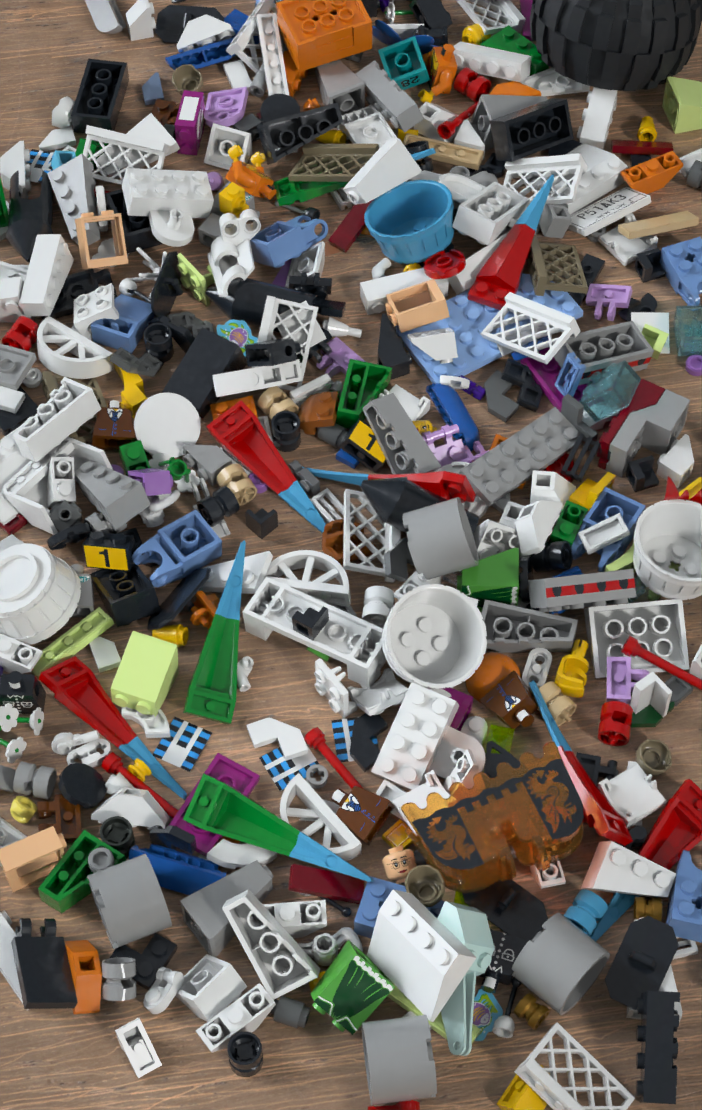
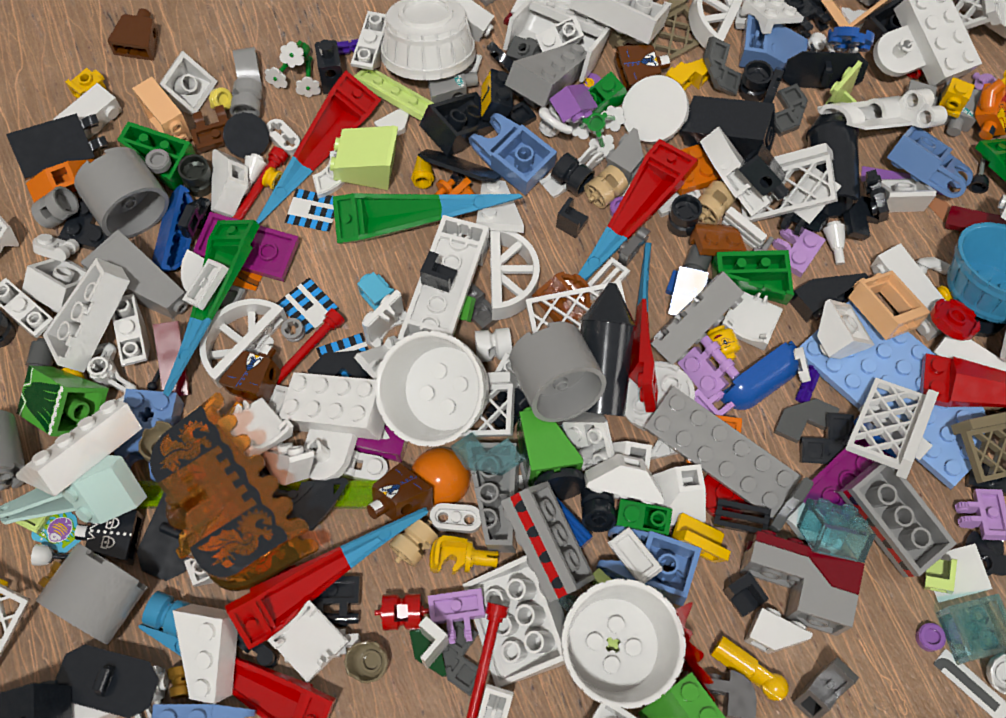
camera: 75 degrees right, 10 degrees up
(66, 742) = (291, 116): white plate -> none
(157, 247) = (849, 37): none -> blue plate
(237, 332) = (790, 142): sticker -> none
(243, 669) = (395, 240): white arm -> none
(272, 730) = (331, 296): white tile -> none
(275, 846) = (205, 284): none -> white tile
(295, 696) = (373, 289): none -> medium azure window
(500, 617) = (495, 461): none -> clear light blue tile
(572, 378) = (845, 481): medium blue tile -> none

